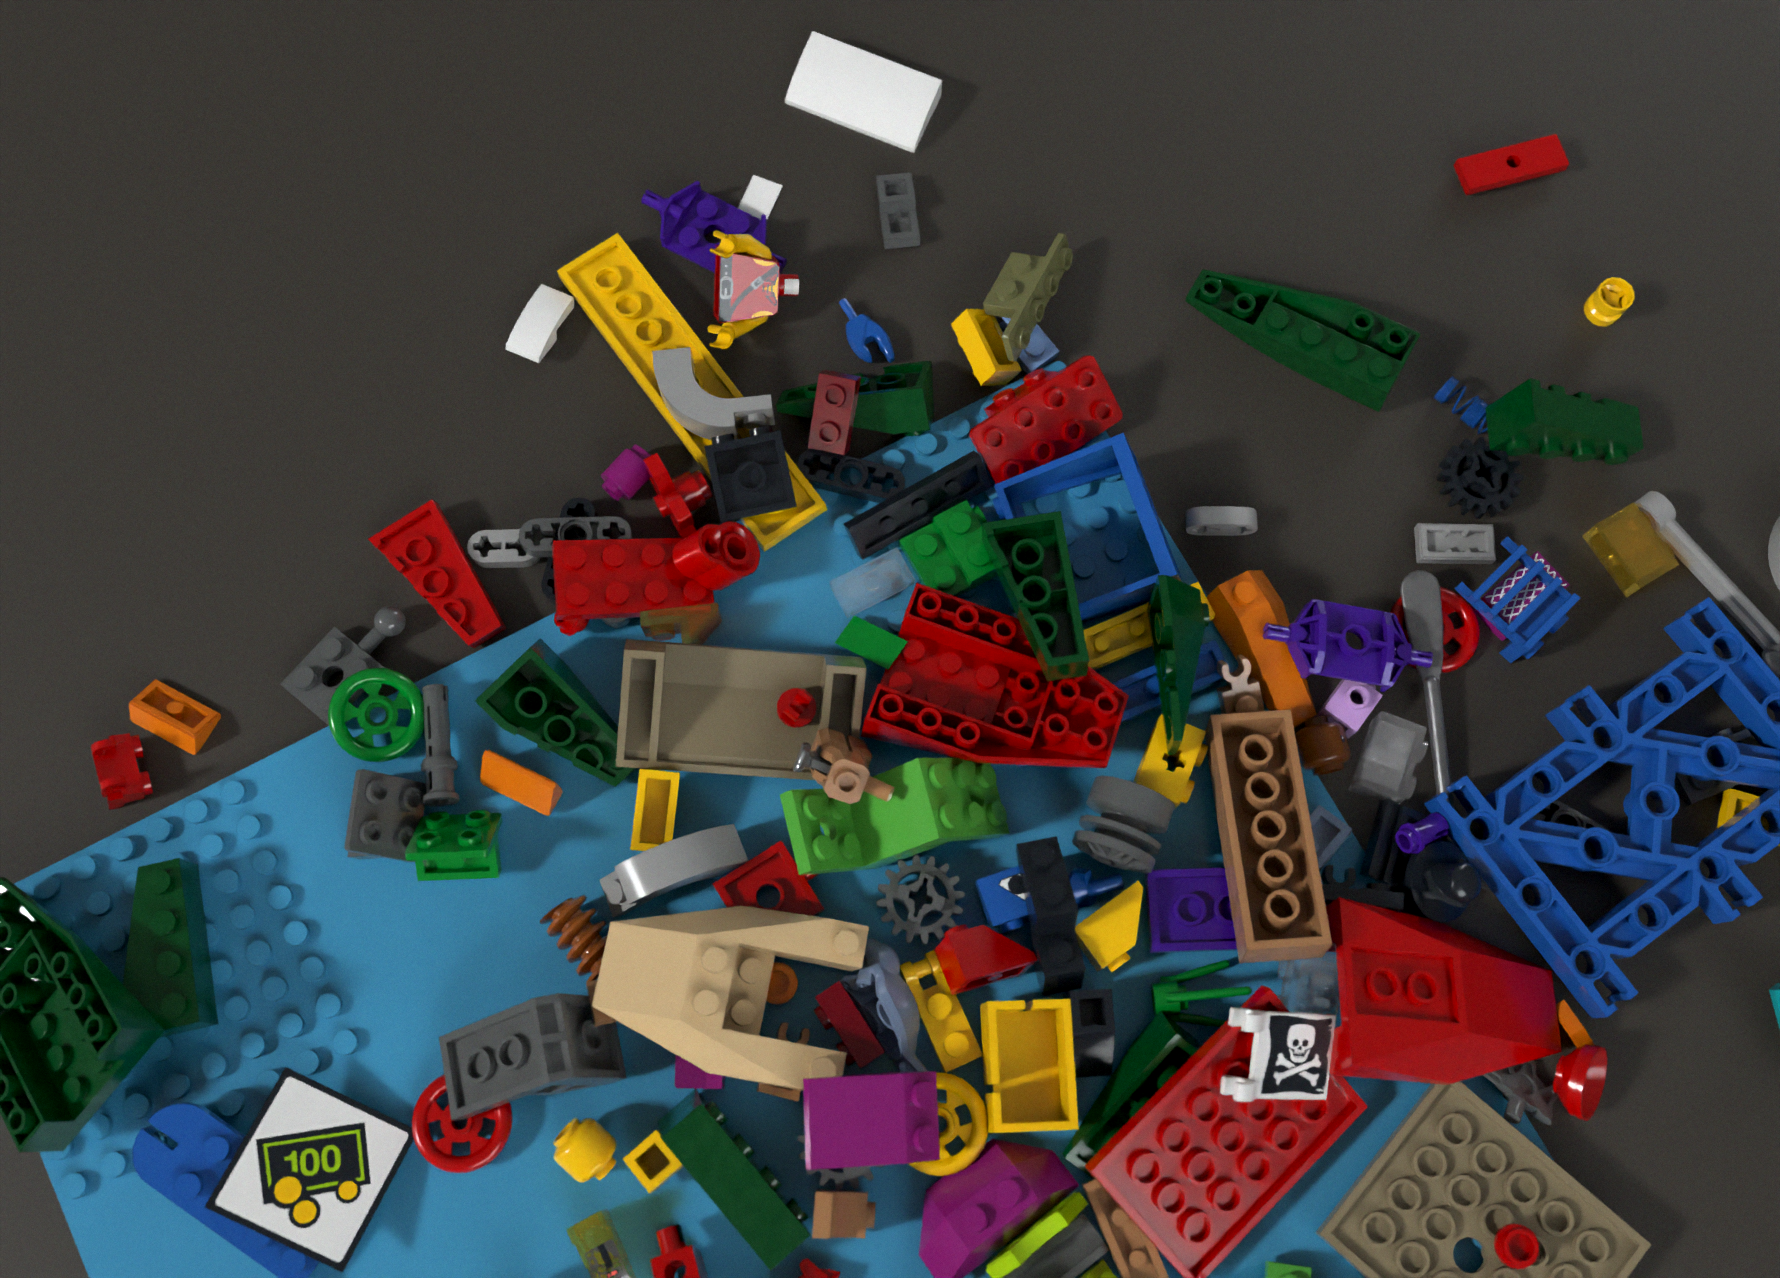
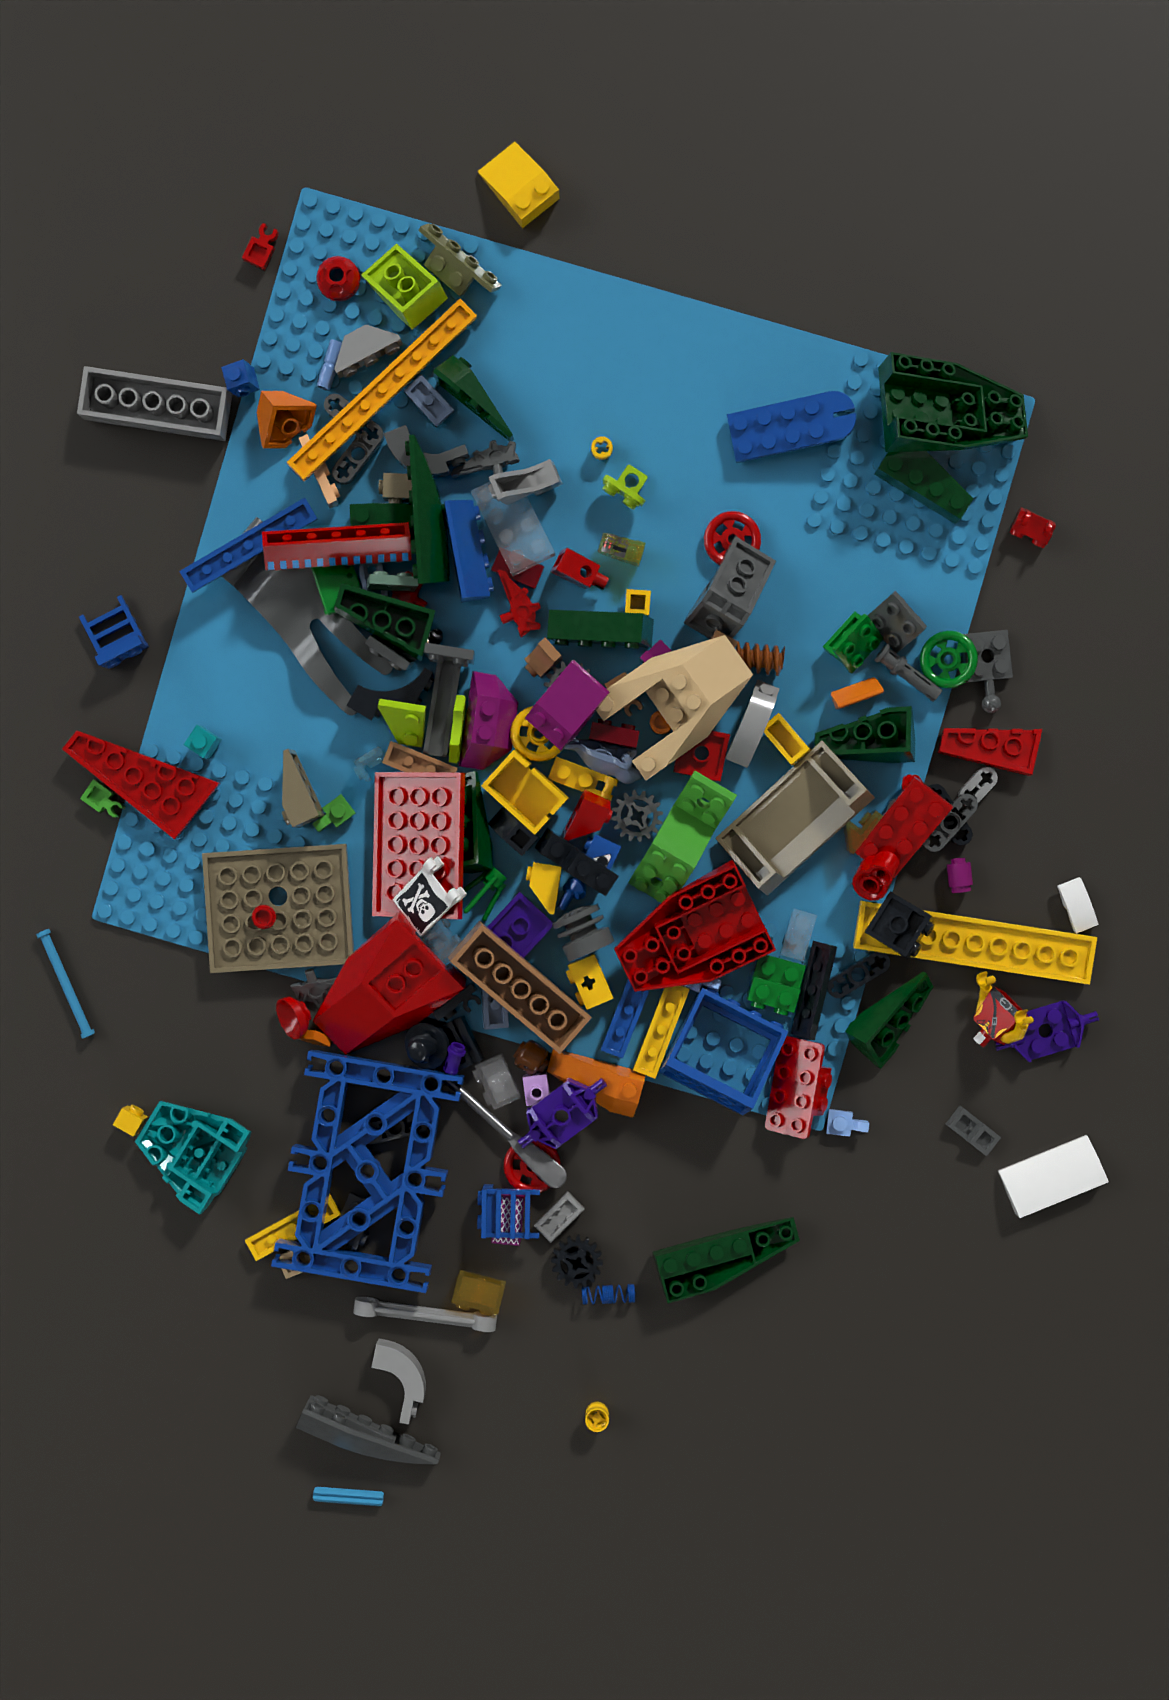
camera: 135 degrees right, 15 degrees up
(173, 716) = (1038, 570): orange slope -> none
(312, 1169) = (770, 462): sticker -> none
(585, 1150) = (670, 579): yellow head -> none
(677, 495) = (923, 886): red plant -> none
(699, 410) = (954, 932): light grey arch -> none
(760, 197) = (1045, 1072): white sticker -> none
(796, 707) = (772, 843): red plate -> none
(834, 412) = (894, 994): dark red piece -> none
(841, 766) = (725, 834): medium nougat piece -> none
(863, 330) = (926, 1053): blue hand -> none
(871, 642) = (770, 906): green sticker -> none
(984, 347) = (861, 1100): yellow piece -> none
(1025, 290) = (870, 1144): olive bracket -> none
(1039, 582) = (723, 1002): dark green wedge -> none
(1177, 632) = (641, 1041): dark green wedge -> none
(1221, 520) = (673, 1121): light grey beam -> none
(1240, 693) = (588, 1044): medium nougat plate -> none
(1511, 164) = (701, 1461): red tile -> none
(1563, 425) = (559, 1323): dark green wedge -> none

